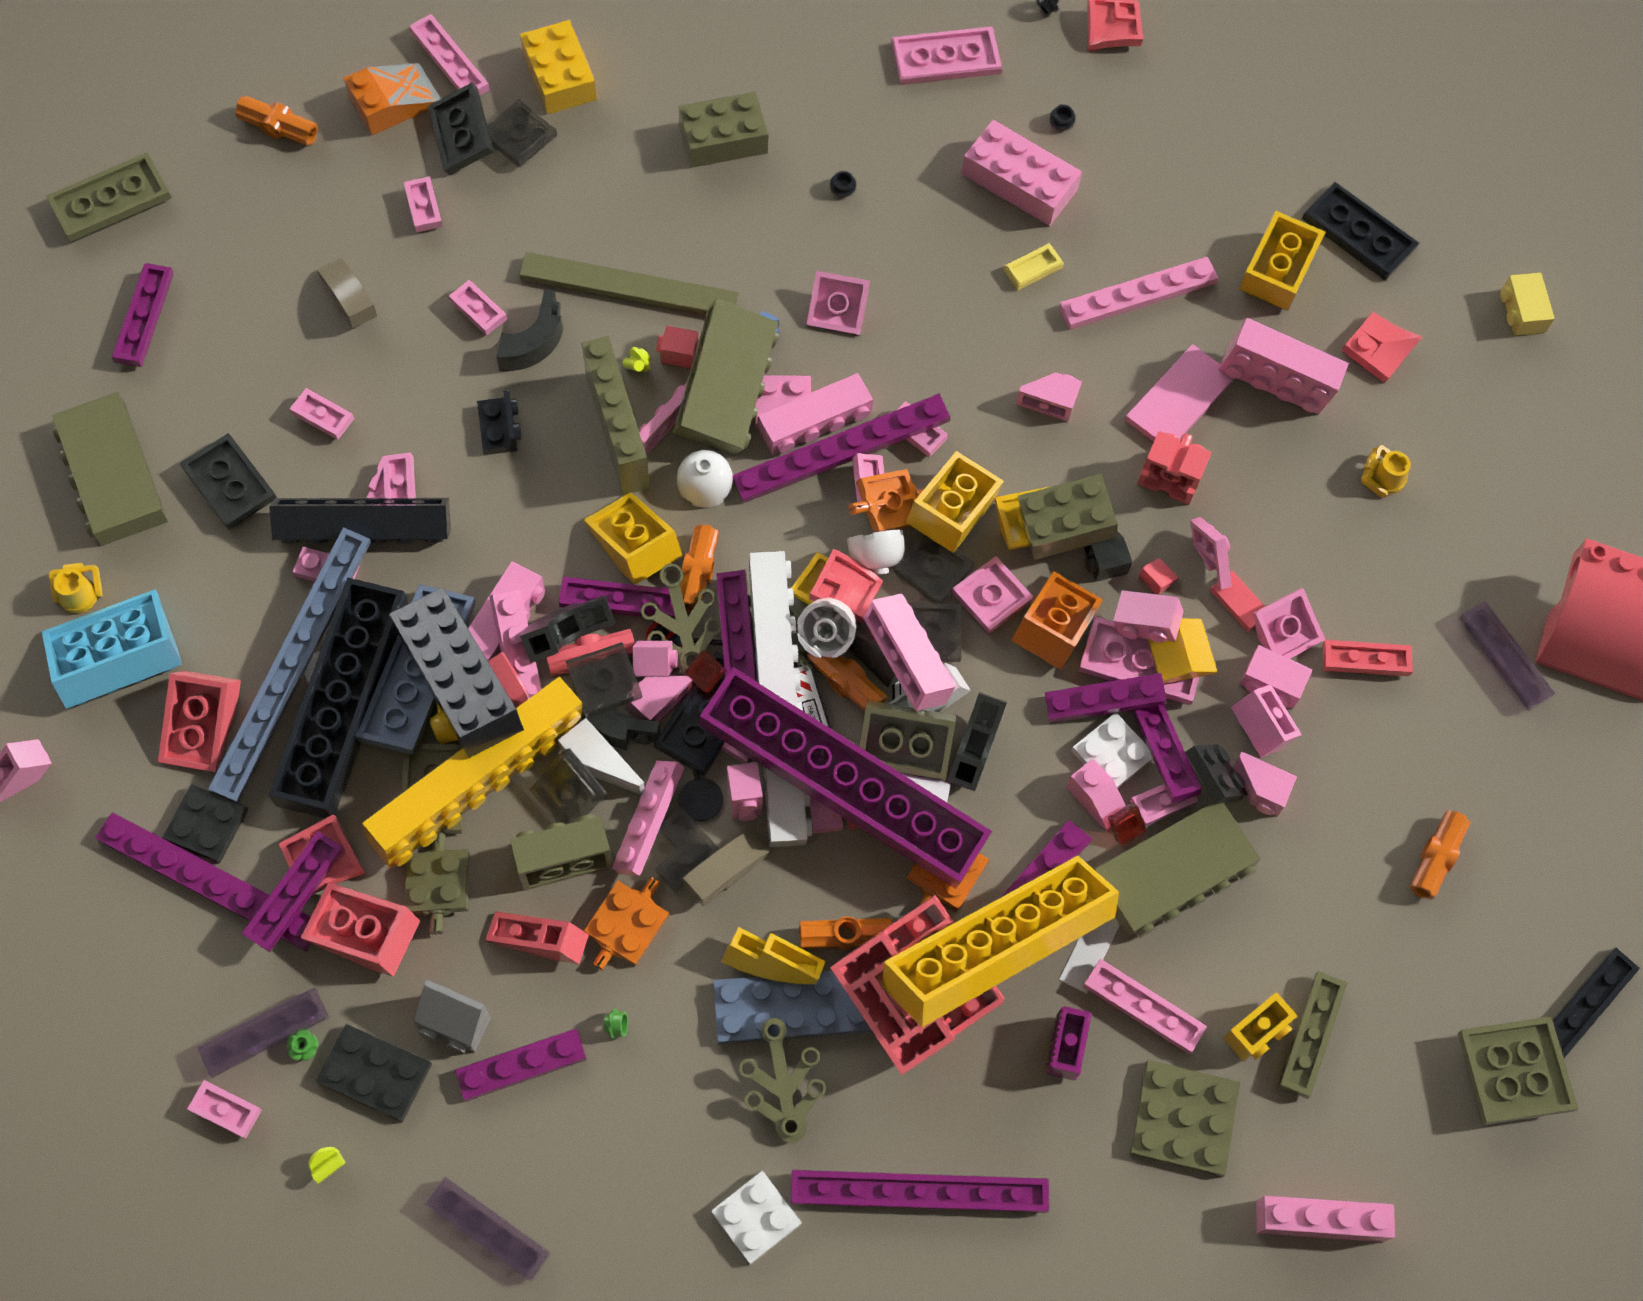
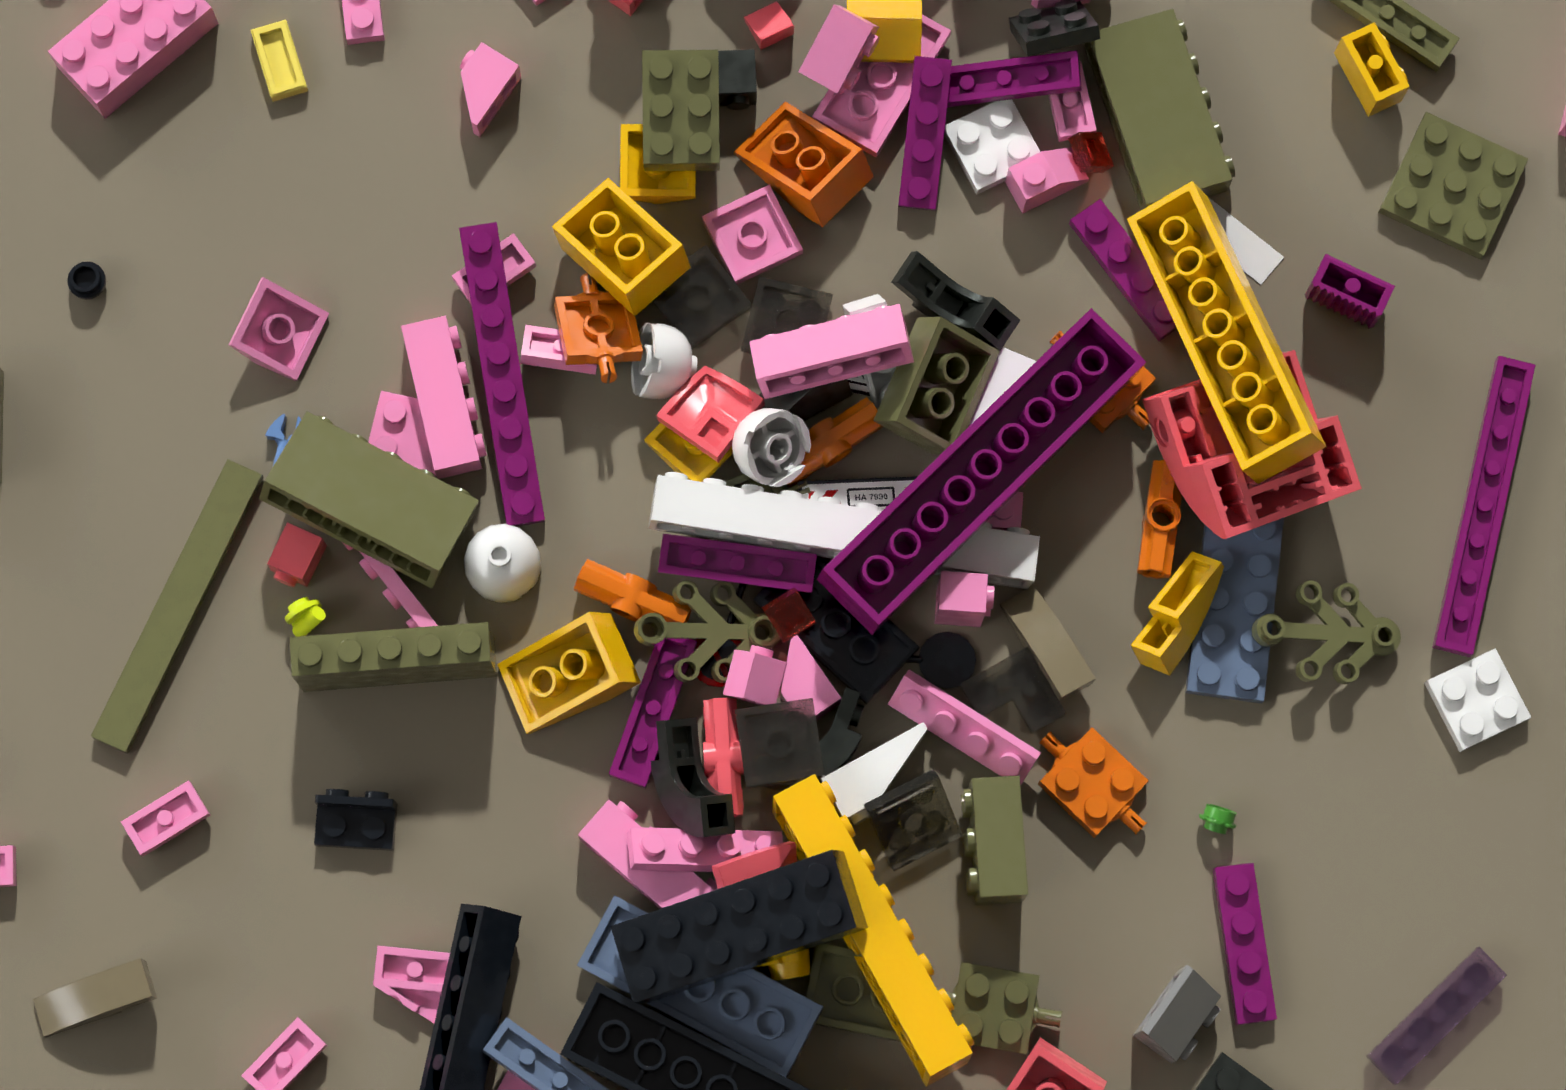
camera: 75 degrees left, 10 degrees up
(537, 342) = (249, 761): pearl dark grey arch -> none
(538, 936) = (1091, 895): coral slope -> none
(1145, 1006) = (1316, 194): bright pink plate -> none

